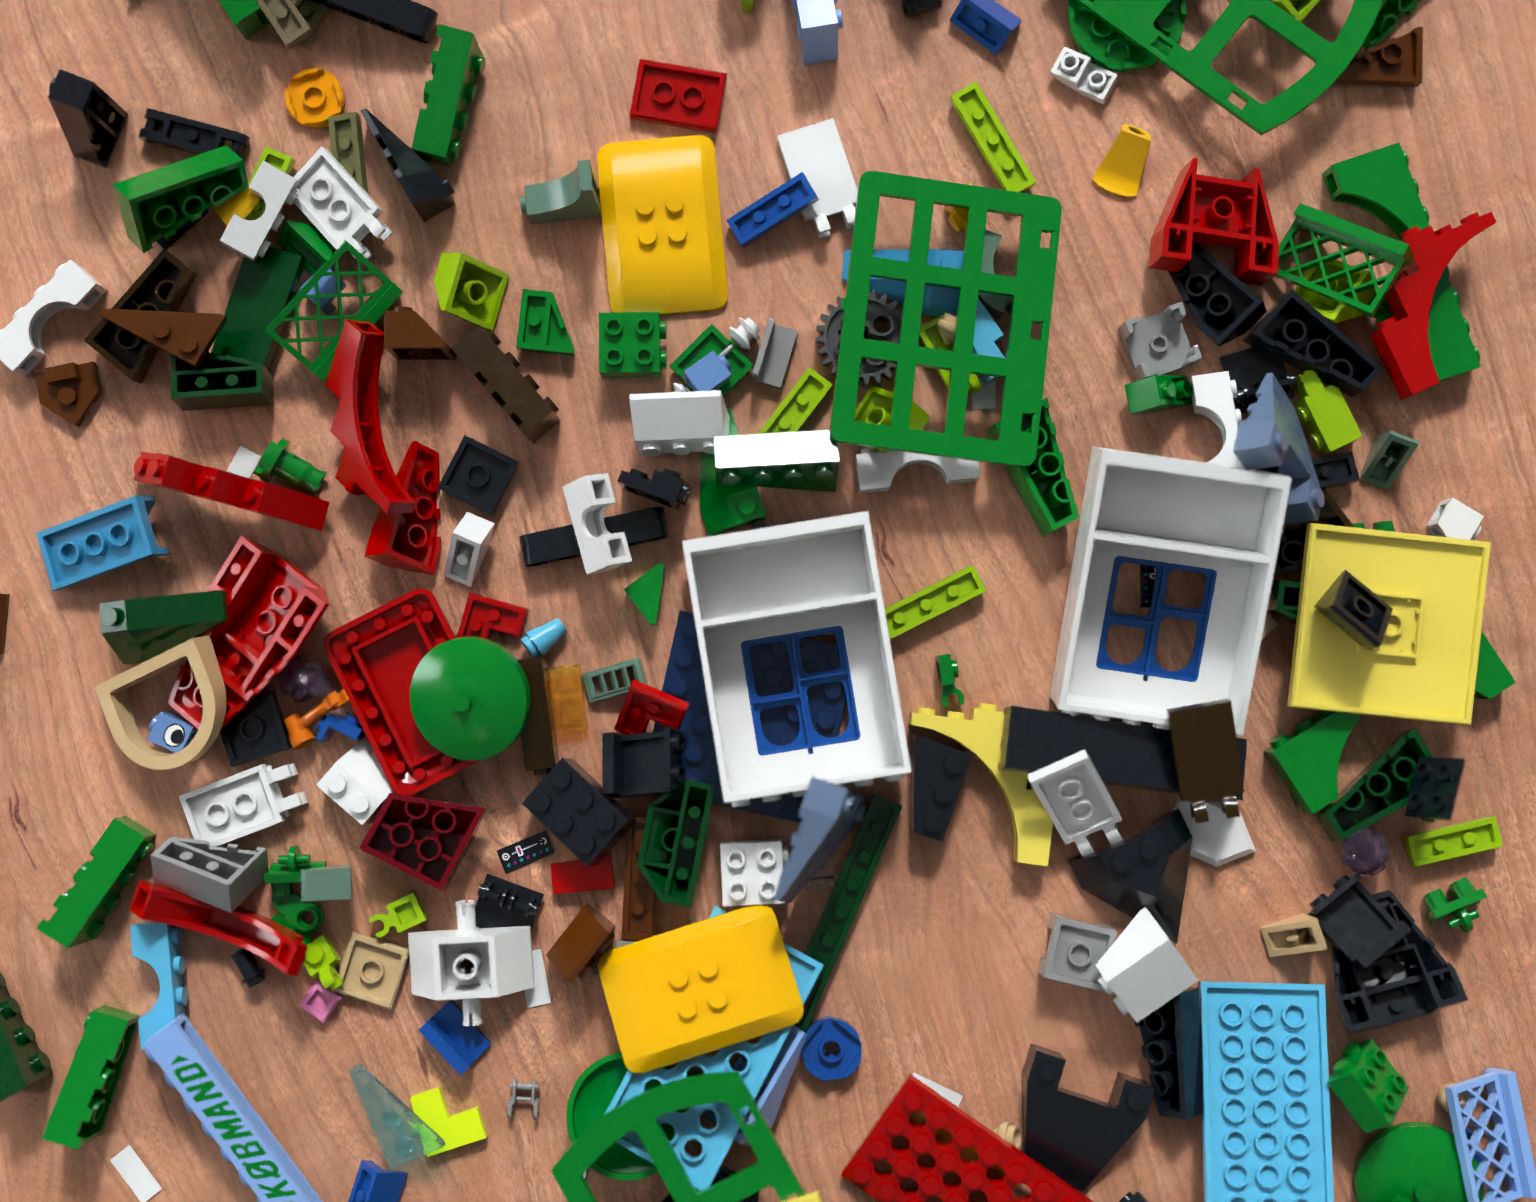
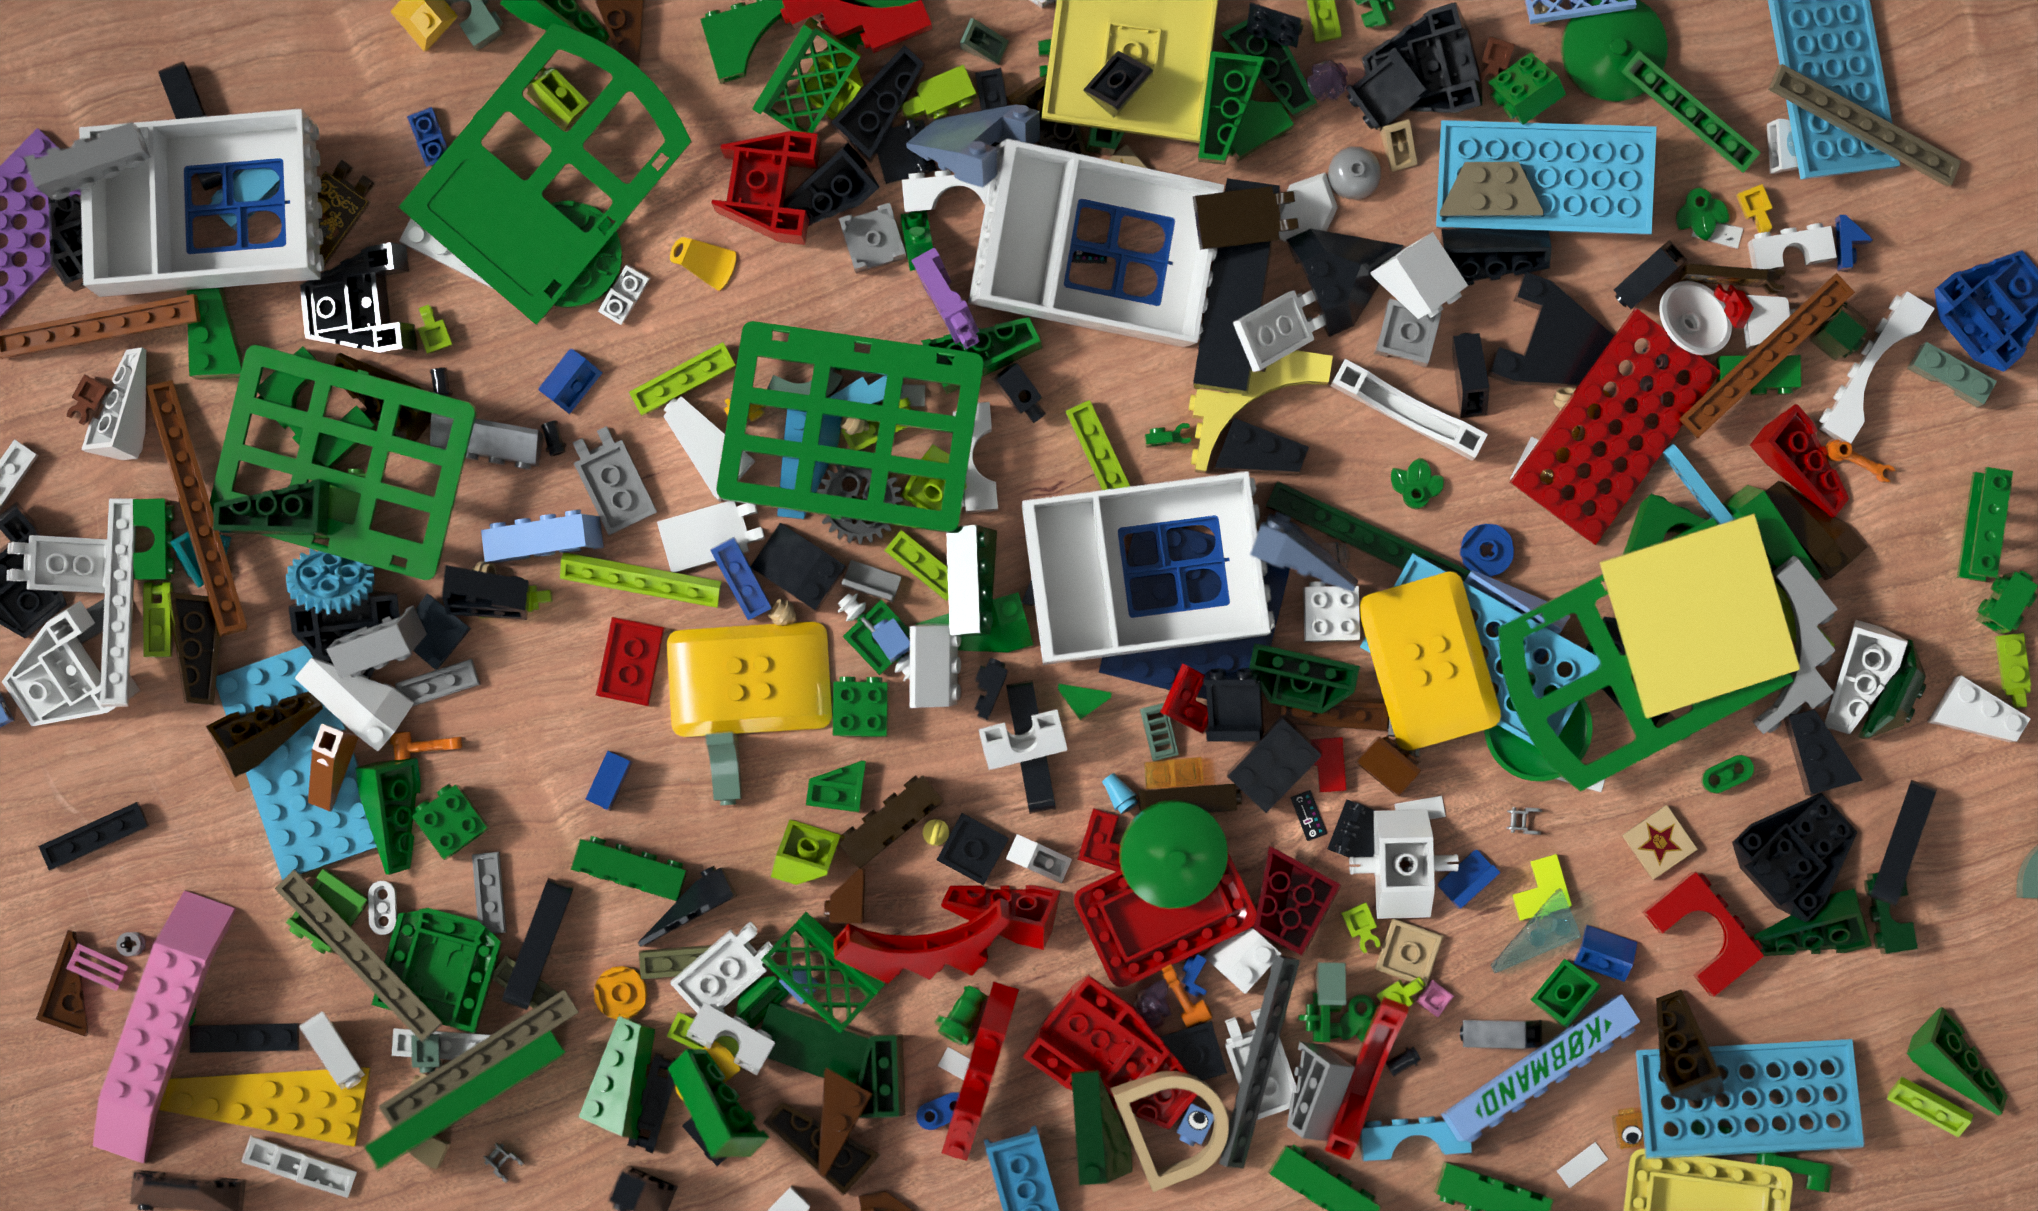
camera: 85 degrees left, 0 degrees up
(191, 447) = (940, 1108): none -> blue plate
(213, 94) = (620, 1079): none -> wedge
(241, 803) = (1259, 1061): none -> dark grey plate
(278, 1080) = (1501, 1033): none -> slope
(325, 1154) = (1565, 993): none -> green slope
(497, 435) = (936, 832): none -> light yellow tile
(546, 77) = (608, 780): none -> blue panel
(735, 258) = (782, 613): none -> tan plate
(768, 101) = (640, 580): none -> lime plate
(786, 275) = (798, 567): none -> black slope
(875, 69) = (613, 483): none -> light grey tile
(909, 965) = (1416, 479): none -> green plate
(926, 158) = (700, 441): none -> white slope
(979, 970) = (1408, 411): none -> white arch
(1004, 503) = (1013, 381): none -> black torso
(1031, 1026) = (1470, 375): none -> black slope
(1085, 427) = (947, 302): none -> medium lavender hips
(1246, 1047) = (1491, 191): none -> dark tan wing
(1257, 885) = (1354, 173): none -> light grey cylinder
(1347, 737) = (1226, 100): none -> green wedge
(1401, 1046) = (1496, 56): none -> copper plate

